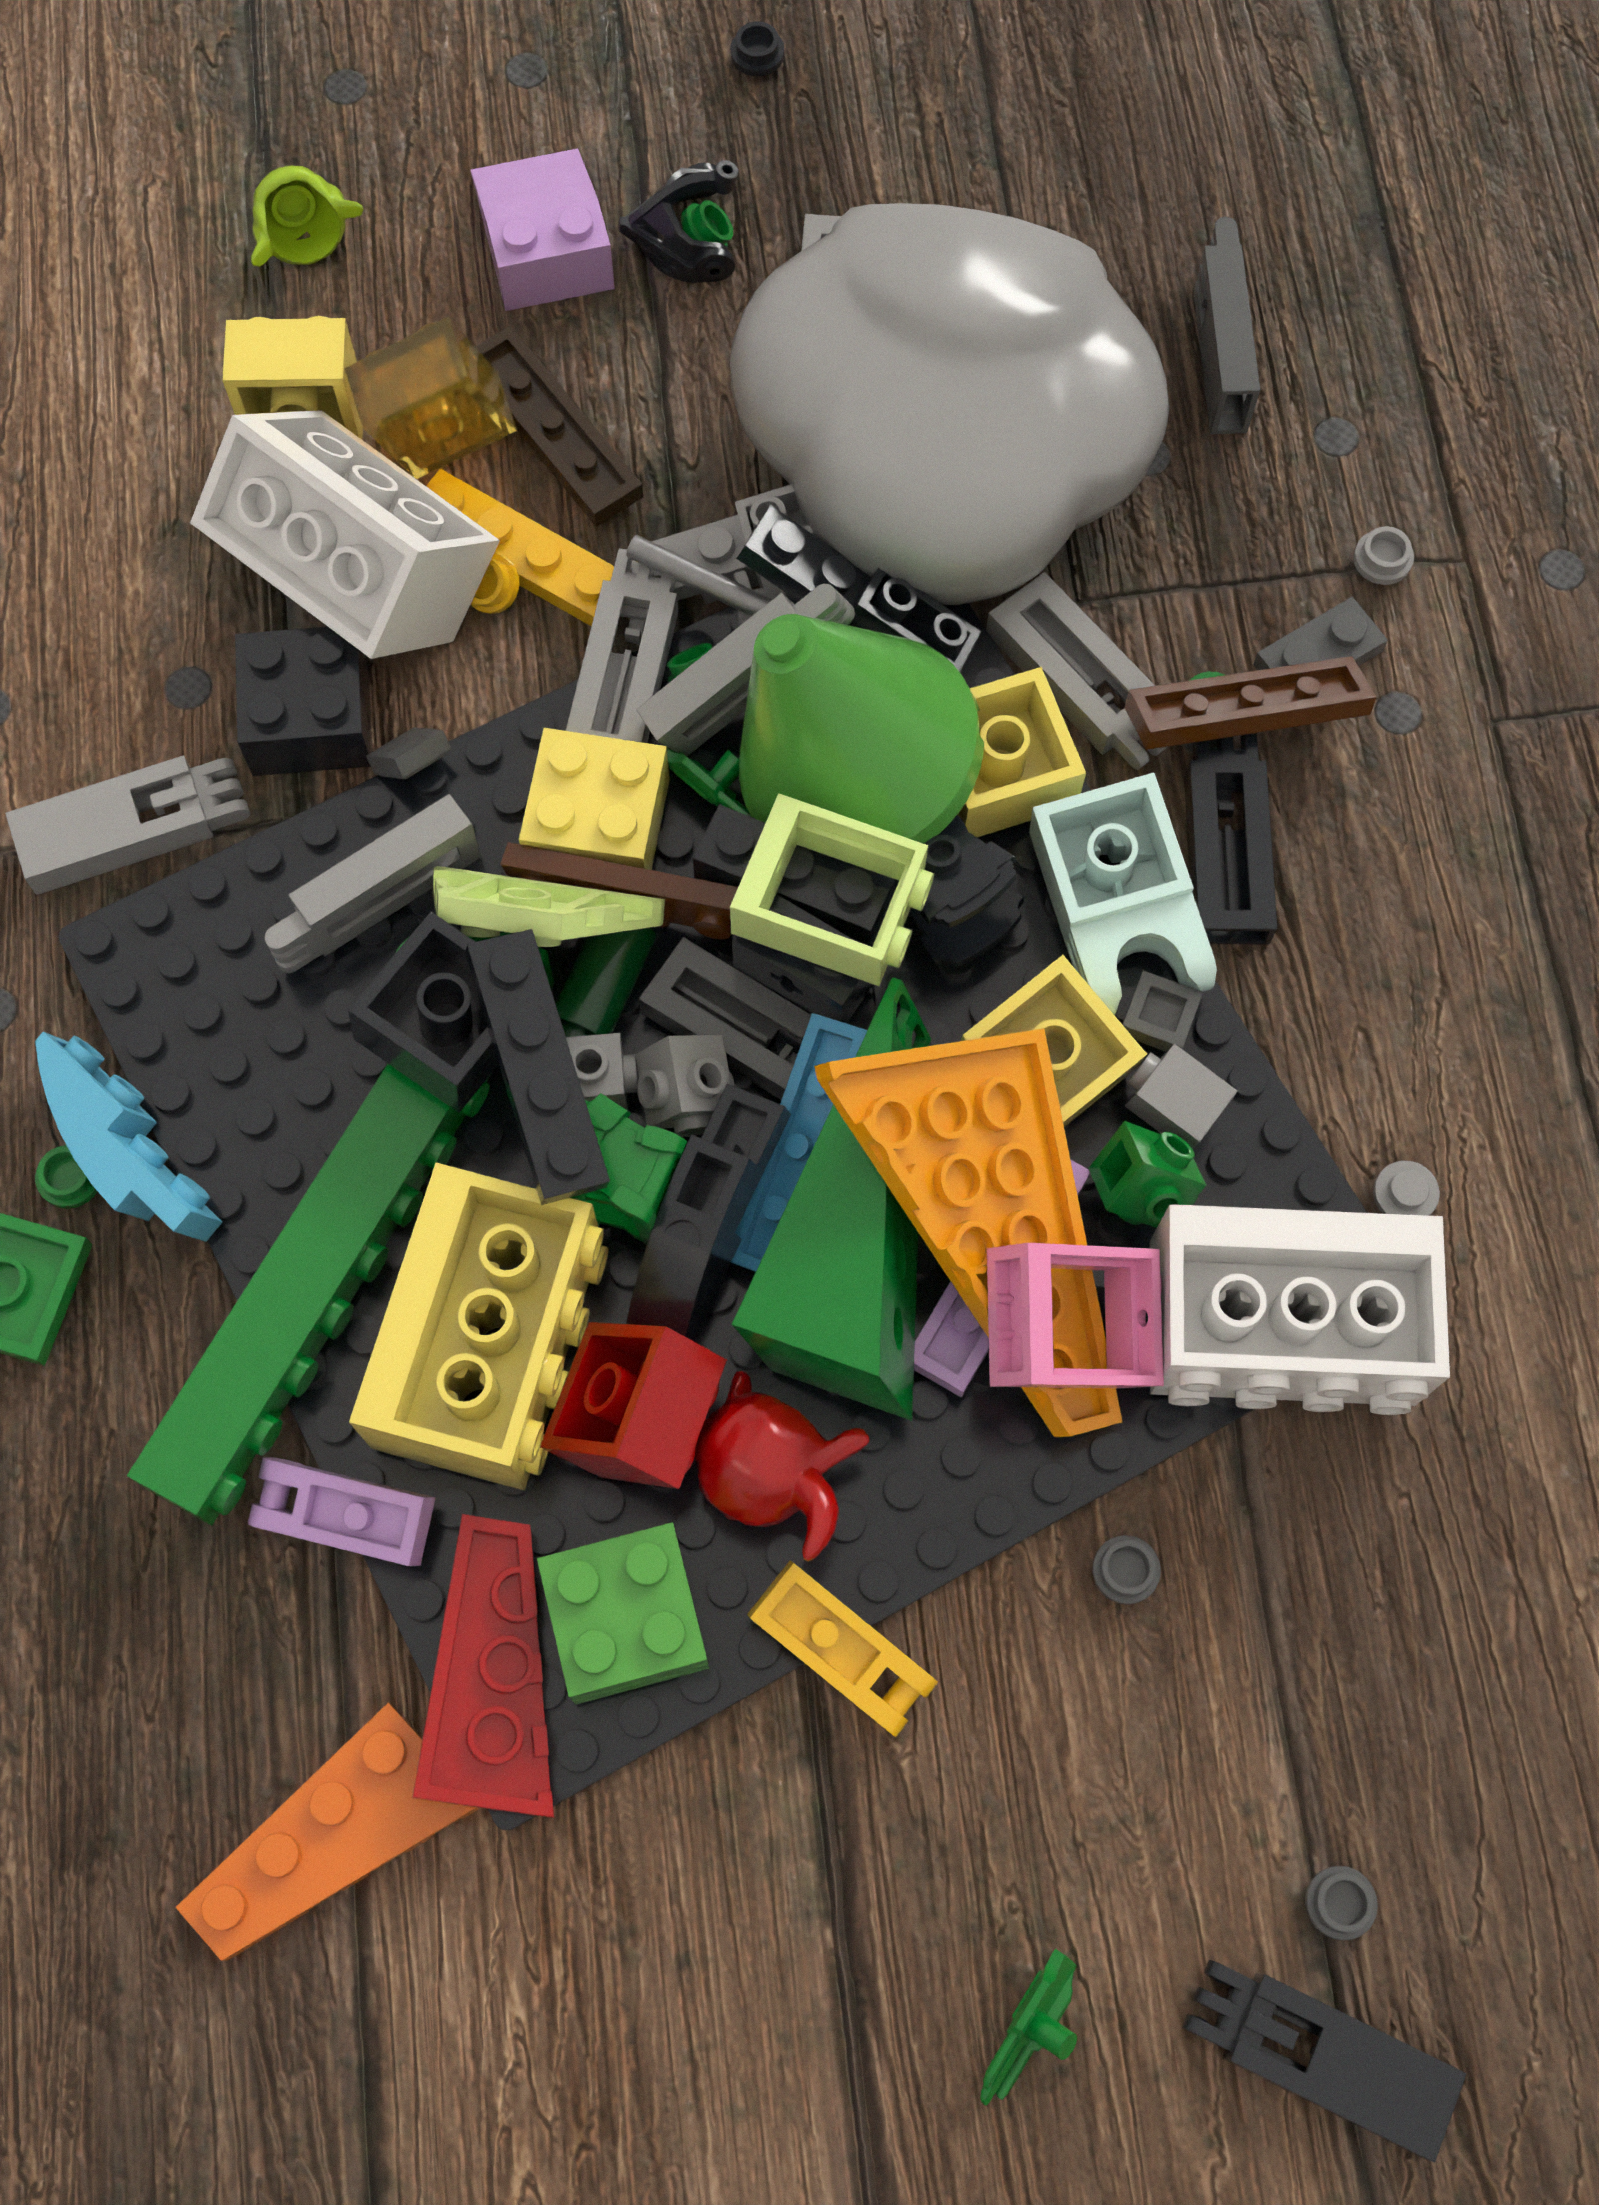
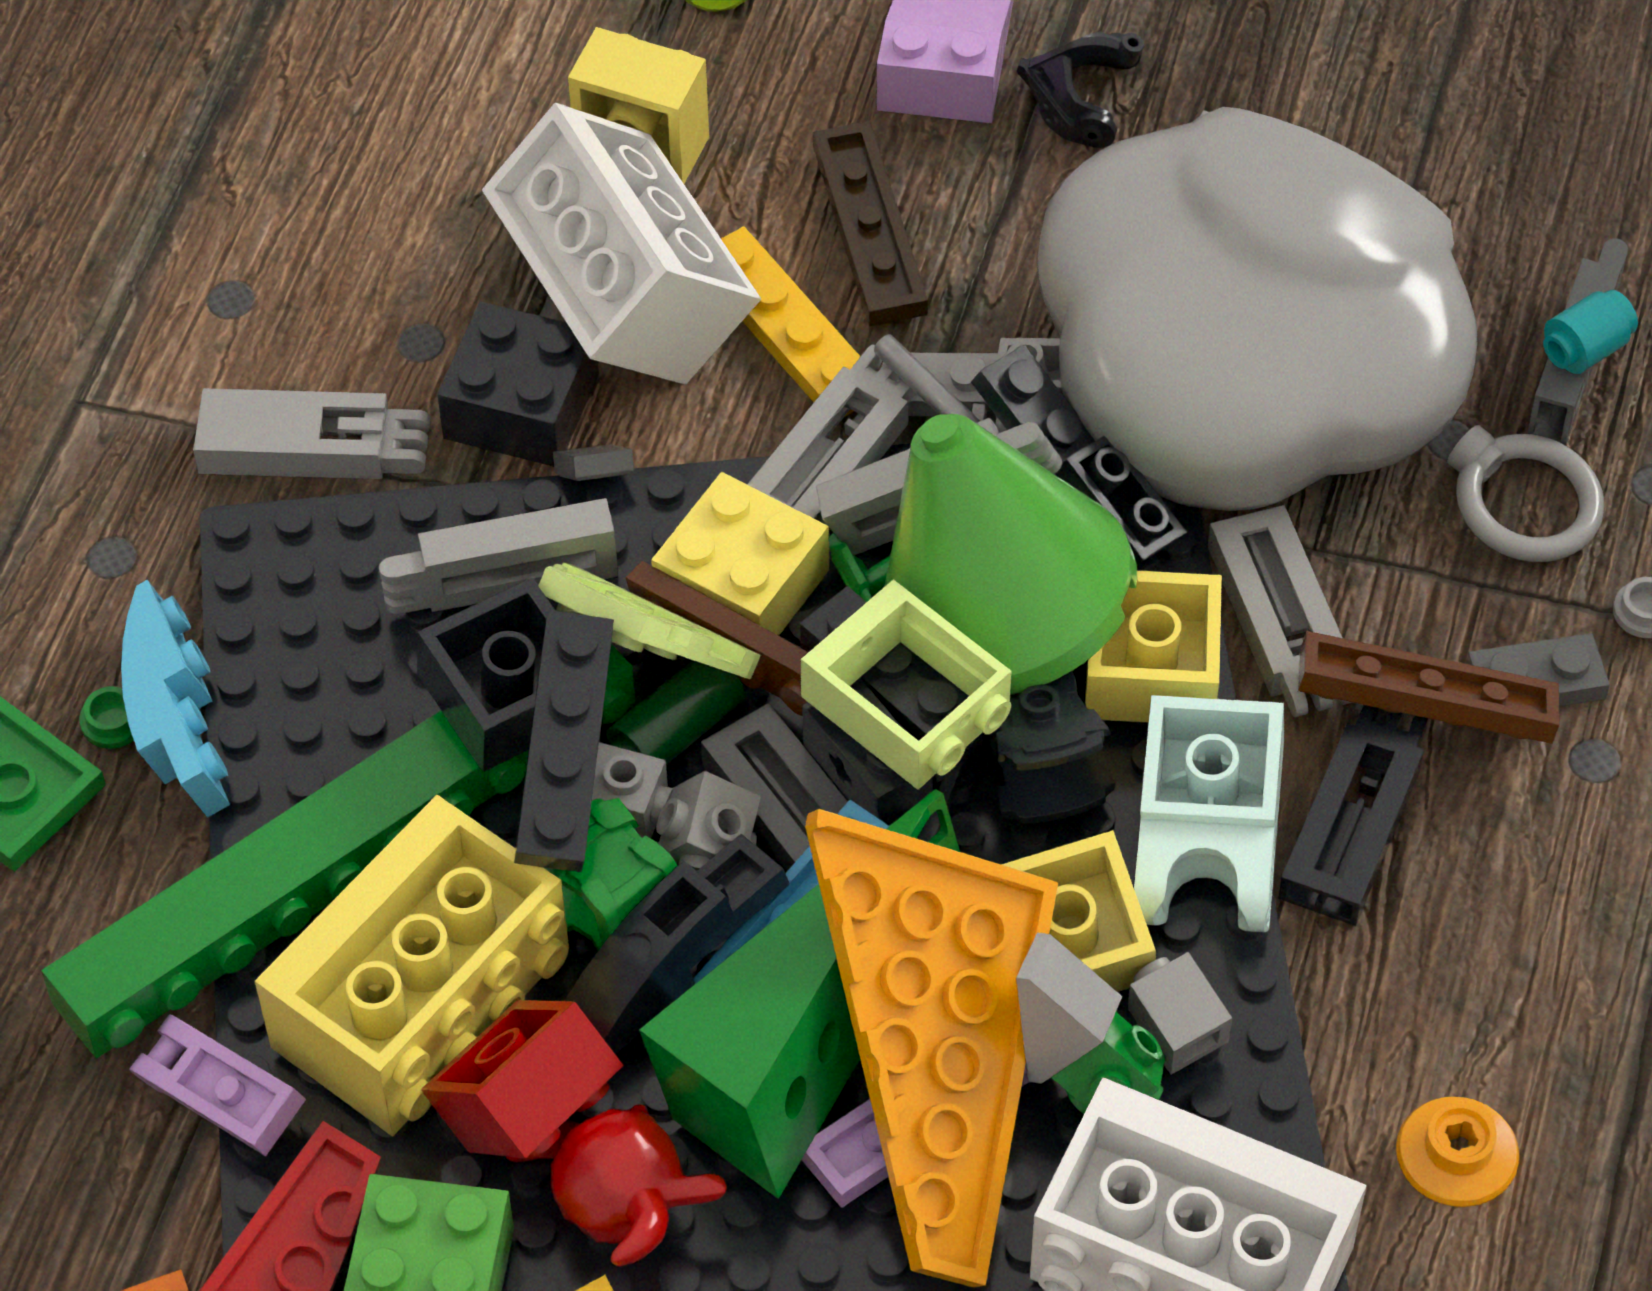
camera: 25 degrees right, 15 degrees down
(430, 398) = (757, 157): clear yellow brick -> none
(497, 587) = (746, 344): yellow plate -> none
(707, 223) = (1104, 89): green plate -> none
(1023, 1324) = (910, 1119): bright pink window -> none
(1105, 1149) = (1061, 1007): none -> light grey slope
(1161, 1012) = (1204, 931): dark grey plate -> none
(1187, 461) = (1480, 456): none -> light grey piece
(1251, 314) = (1589, 331): none -> teal brick
(1406, 1189) = (1386, 1197): light grey plate -> none
(1428, 1137) = (1452, 1175): none -> light orange piece

